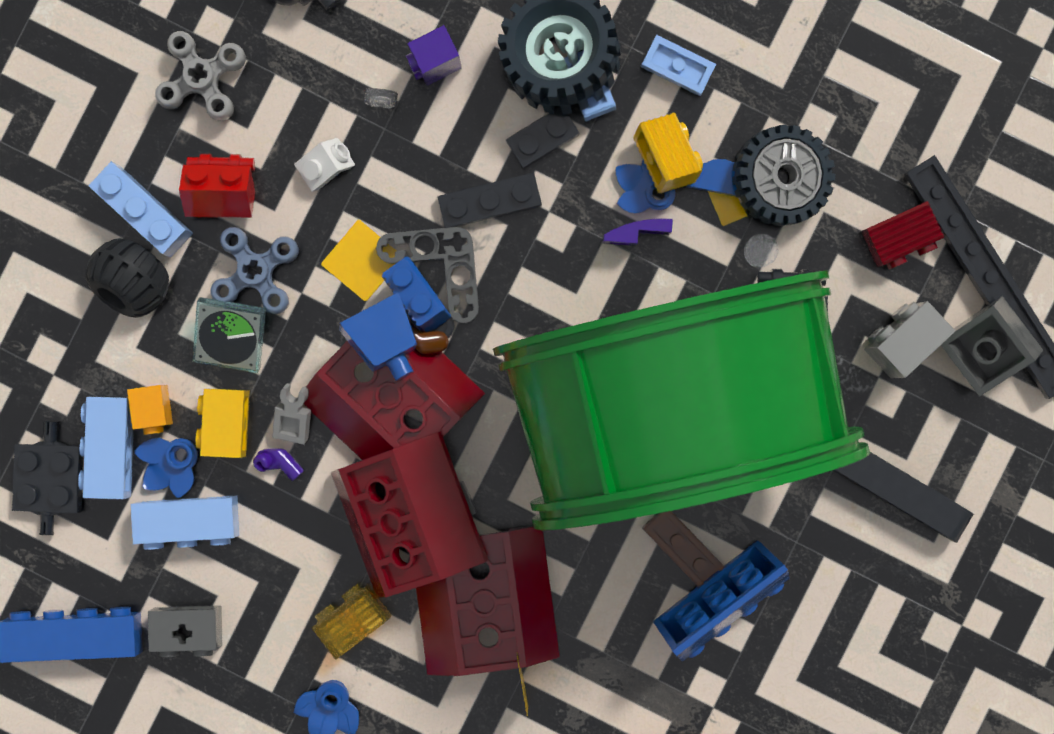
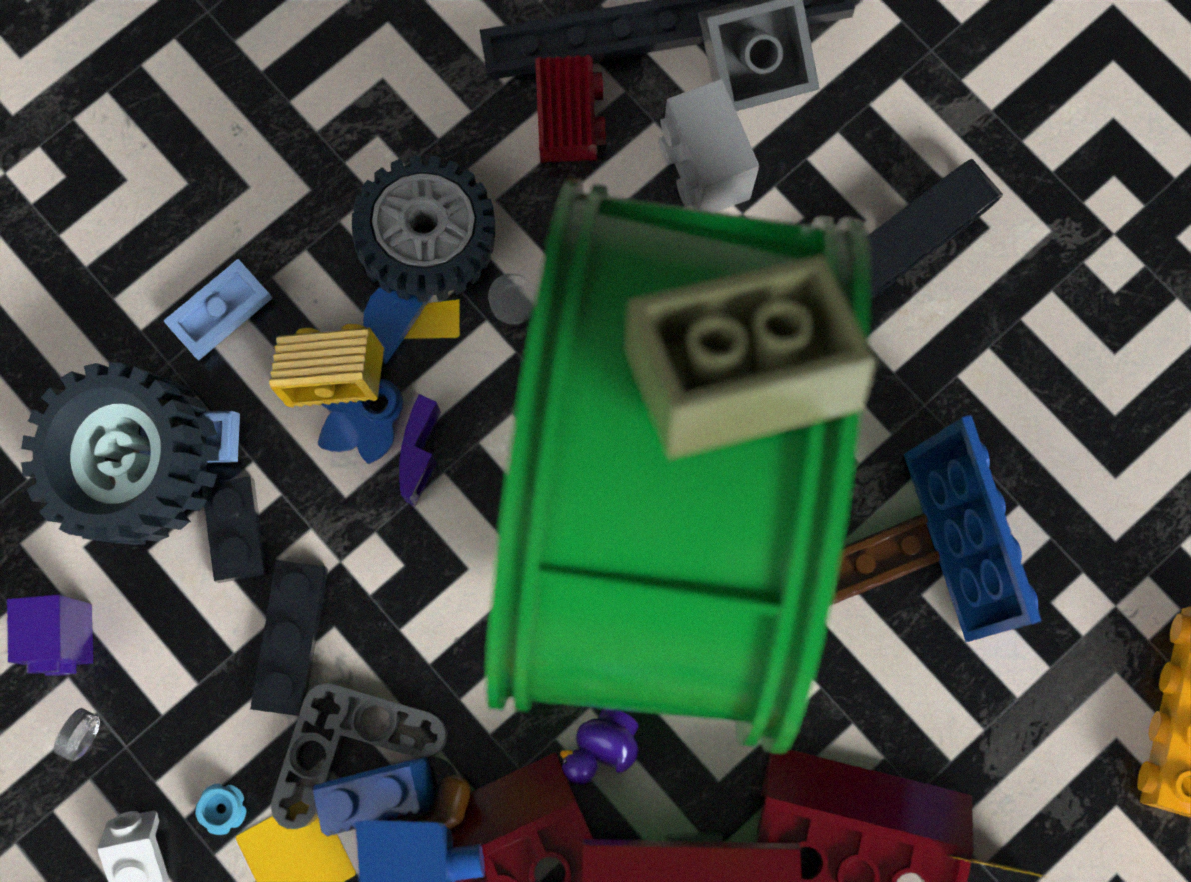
camera: 70 degrees left, 10 degrees down
(362, 204) = (207, 811): none -> medium azure plate
(503, 419) = (601, 740): none -> dark purple animal
(737, 422) = (747, 356): none -> olive brick

